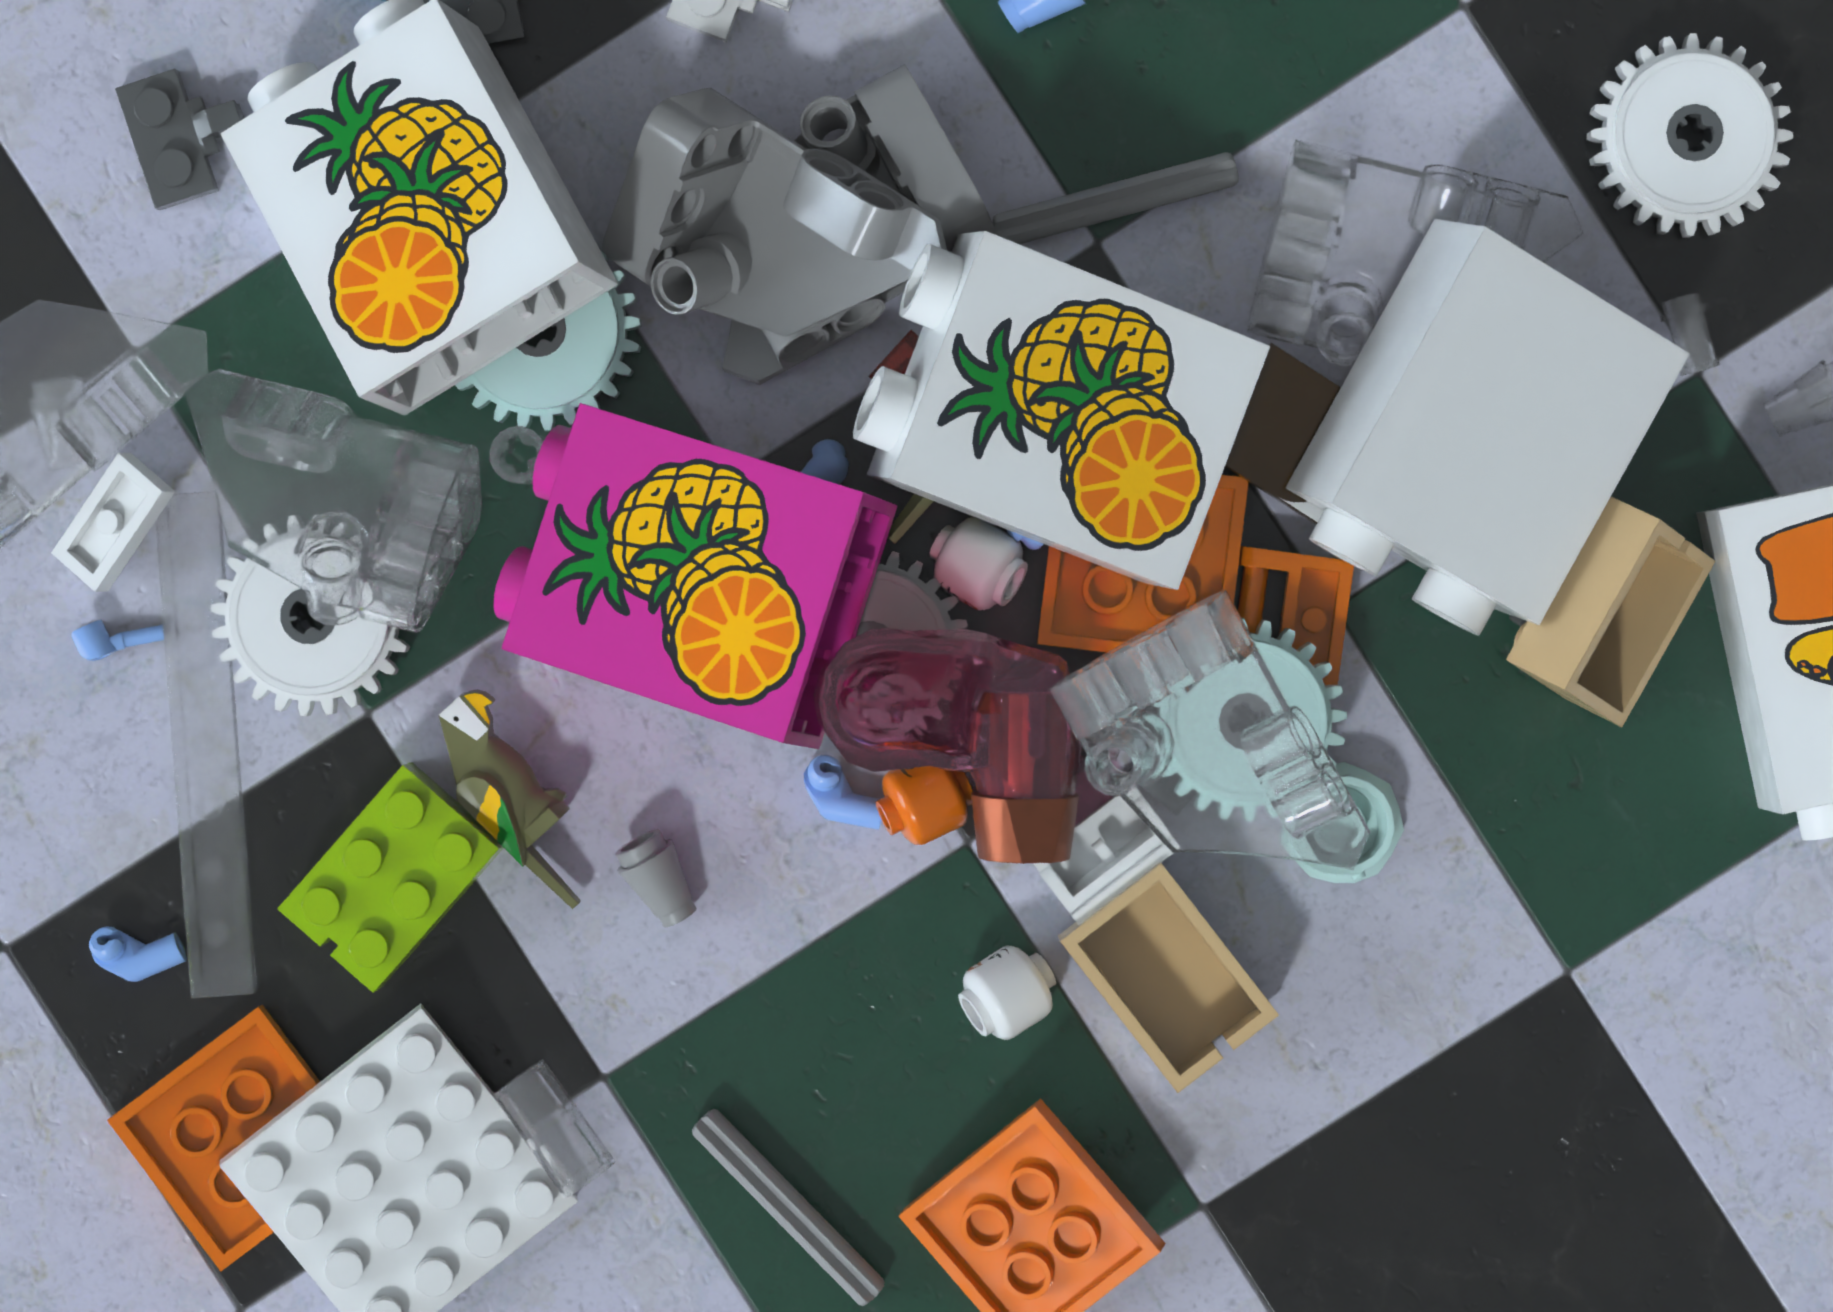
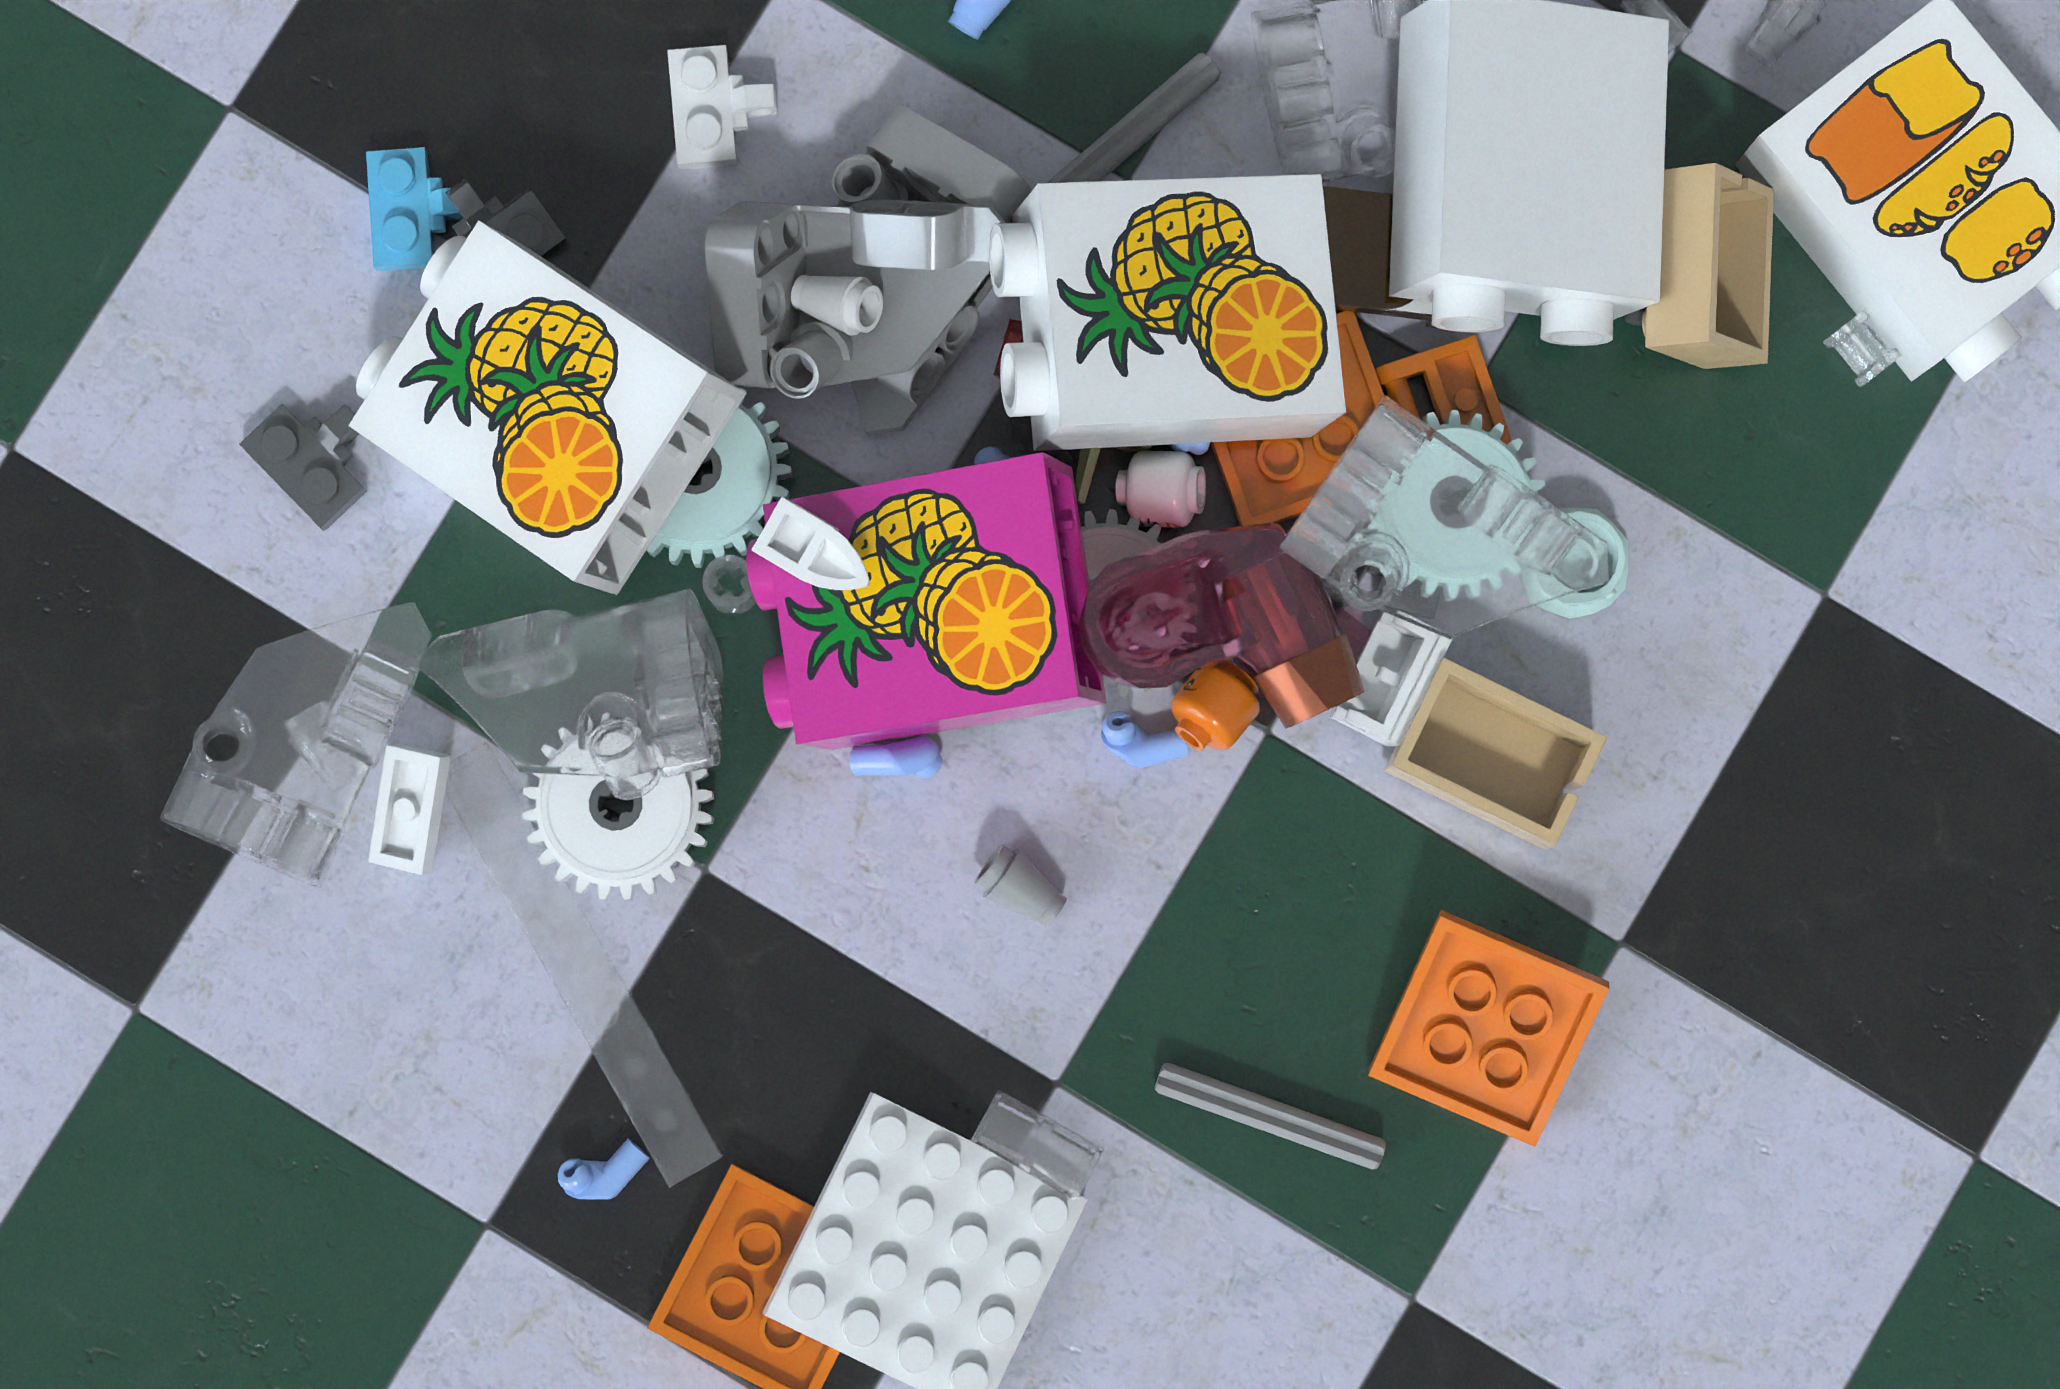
camera: 30 degrees left, 5 degrees down
(95, 643) = (443, 922): light blue hand -> none
(391, 876) = (793, 994): lime piece -> none
(501, 787) = (849, 871): olive animal -> none
(600, 473) = (810, 549): none -> white plate
(600, 700) = (905, 757): none -> light blue arm
(753, 235) = (839, 301): none -> white cone
(1007, 992) = (1366, 838): white head -> none
(1723, 755) = (1862, 348): none -> clear bush

